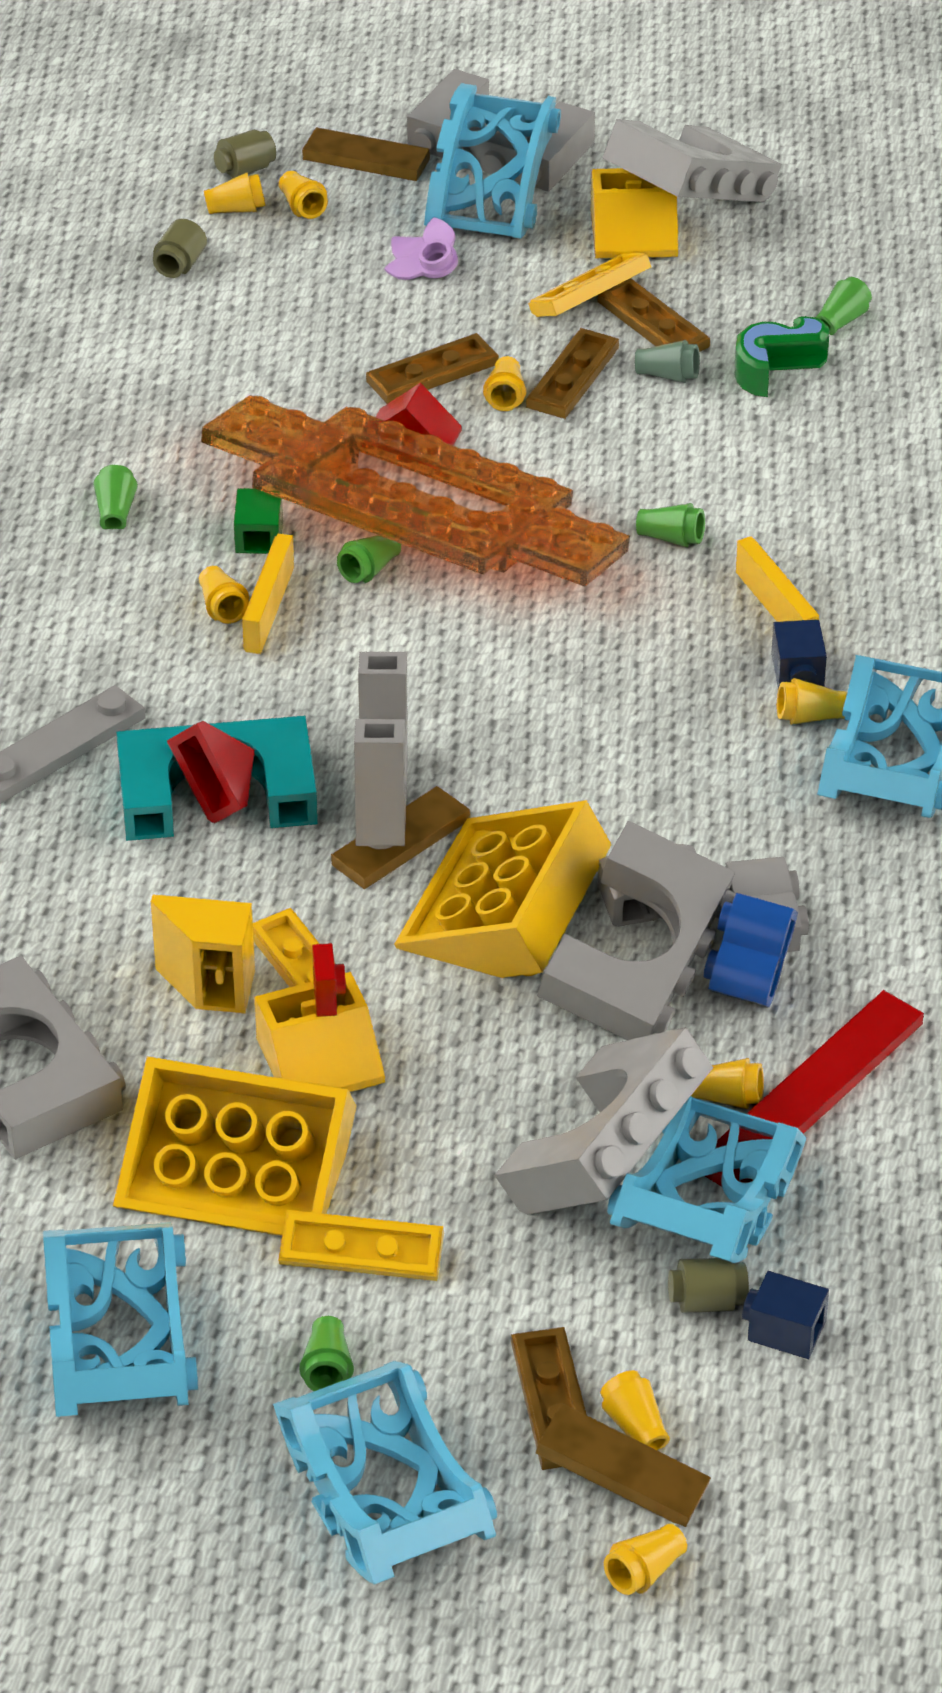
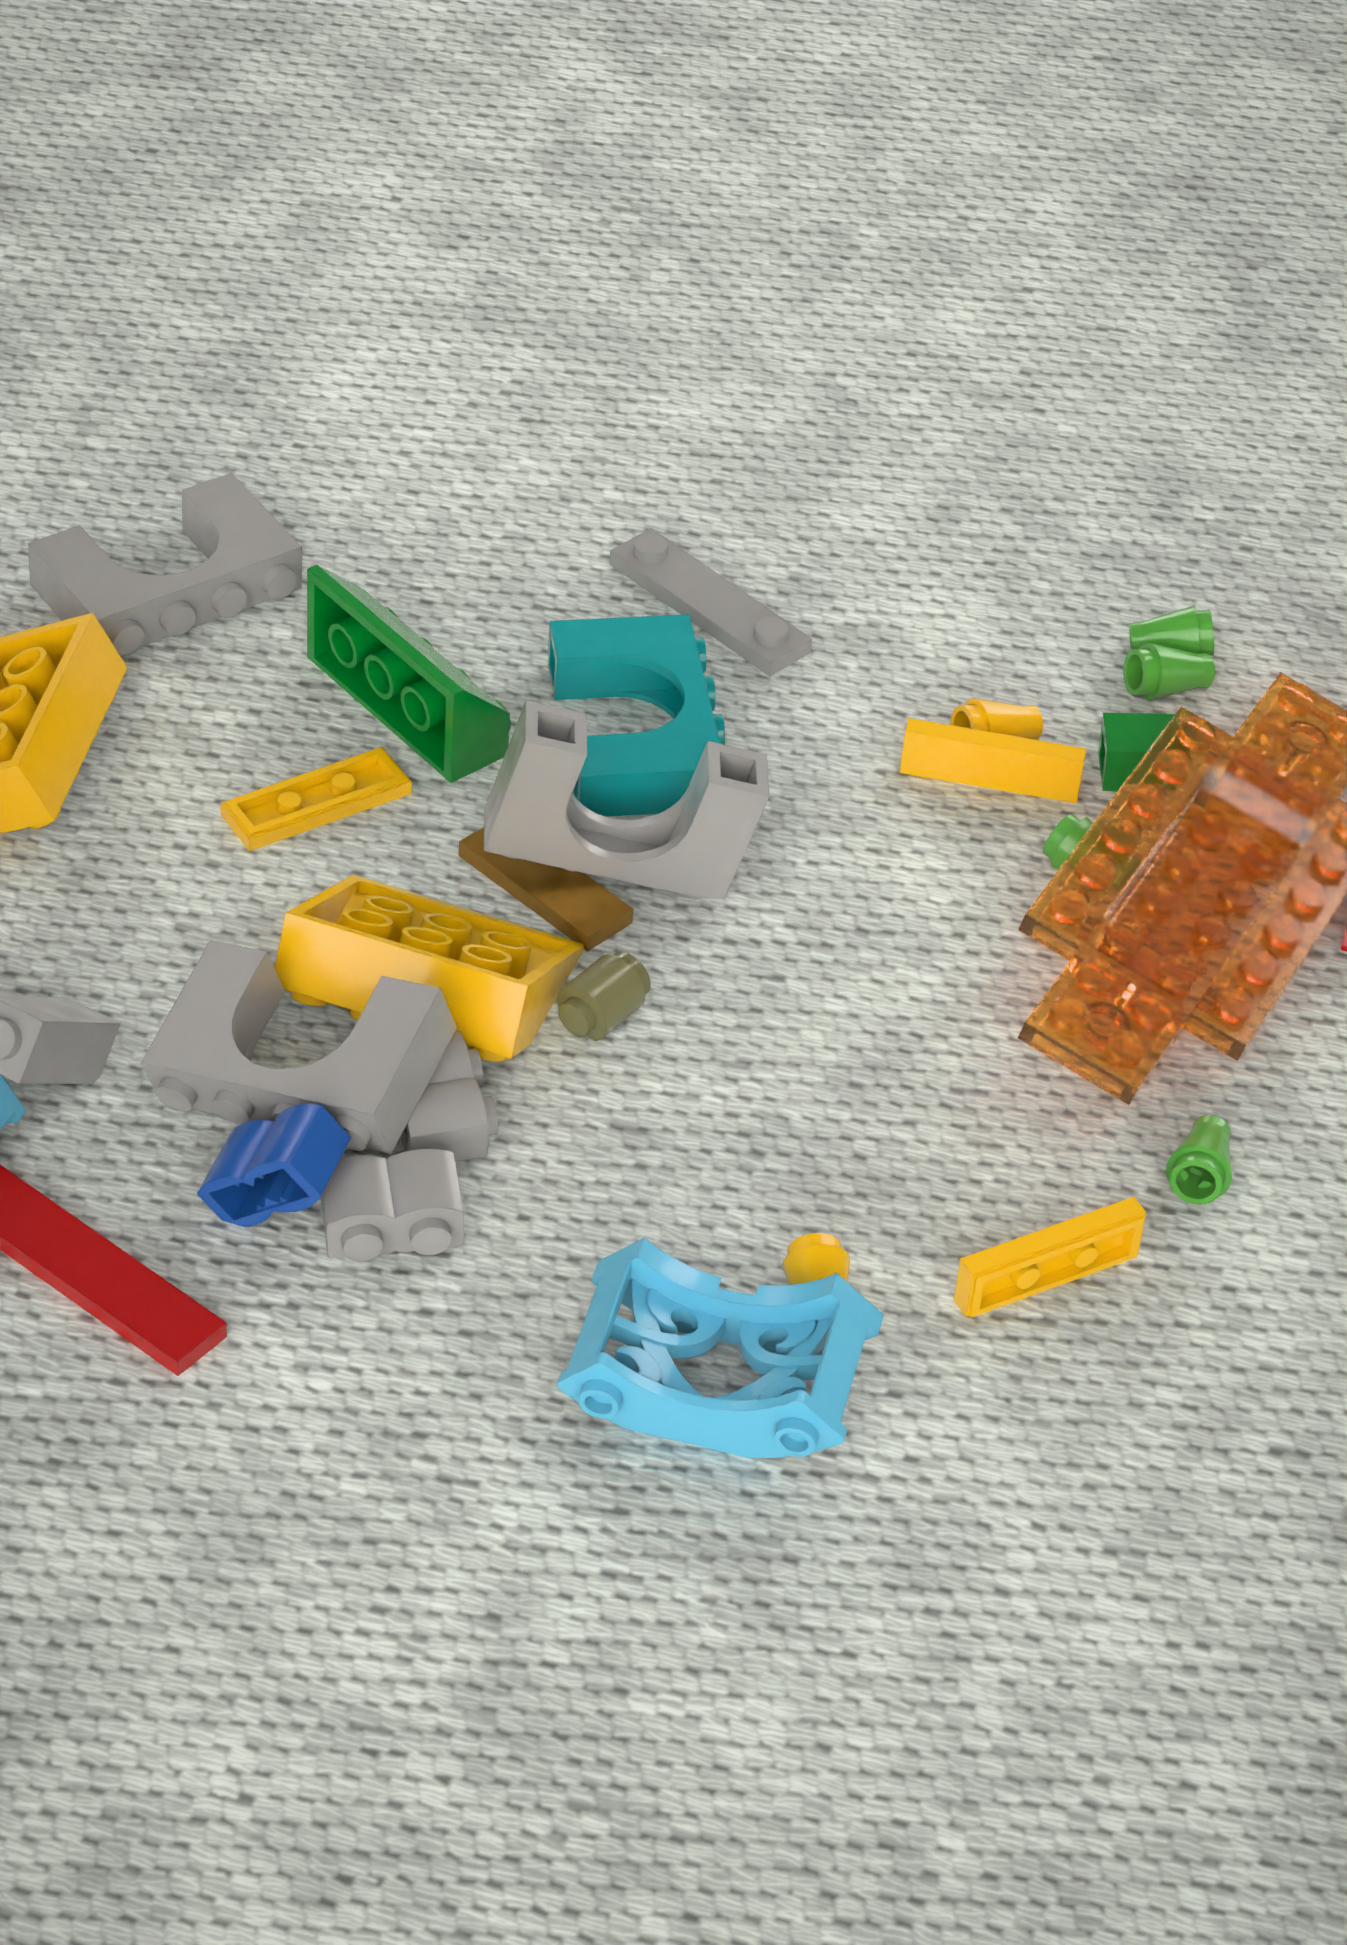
camera: 85 degrees right, 0 degrees up
(158, 506) = (1165, 671): none -> bright green cone
(205, 950) = (295, 683): yellow slope -> none
(215, 768) = (634, 696): red slope -> none
(231, 870) = (402, 678): none -> green slope
(315, 1049) = (159, 785): yellow slope -> none
(327, 979) = (186, 735): red plate -> none
(533, 789) = (603, 995): none -> olive brick
(733, 1084) = (62, 1157): yellow cone -> none
(799, 651) = (912, 1271): dark blue brick -> none

